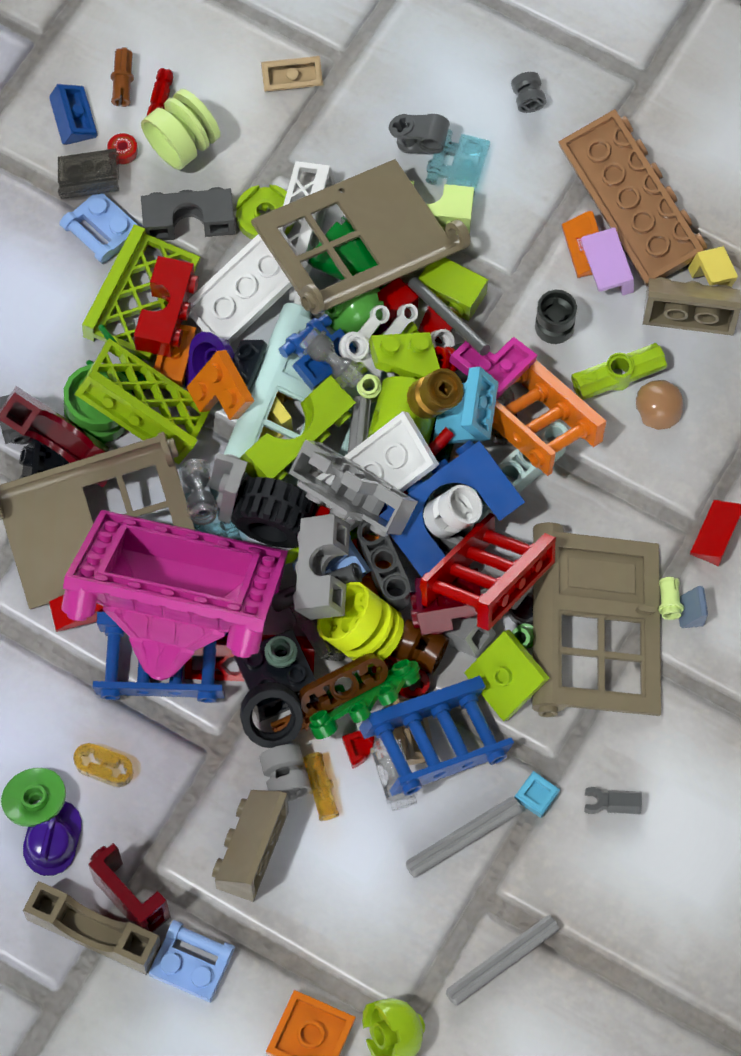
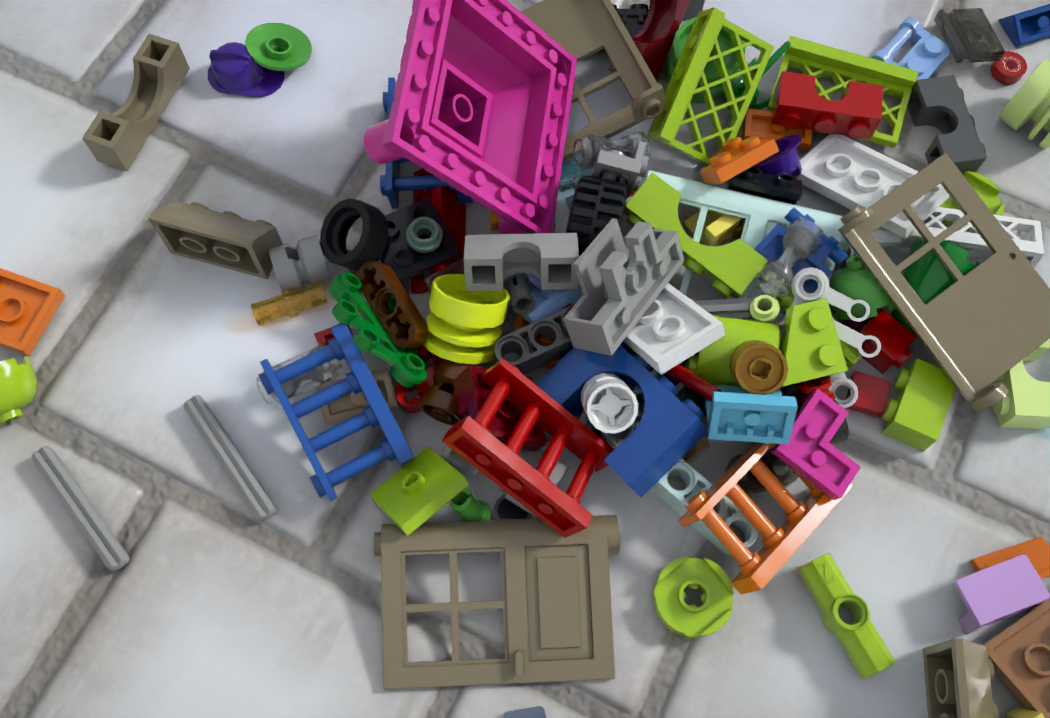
camera: 85 degrees right, 0 degrees up
(106, 758) = (322, 108): clear yellow beam -> none
(148, 915) = (166, 120): dark red panel -> none
(187, 971) = (98, 195): light blue plate -> none
(449, 316) = (870, 389): dark grey bar -> none
(537, 794) = (280, 538): medium azure tile -> none
(555, 316) = (906, 528): pearl dark grey wheel -> none
(599, 495) = (689, 619): none -> lime plate
(614, 801) = (266, 632): dark grey bar -> none
(659, 404) = (810, 673): medium nougat hair -> none
(670, 598) = (537, 695): yellowish green pin -> none

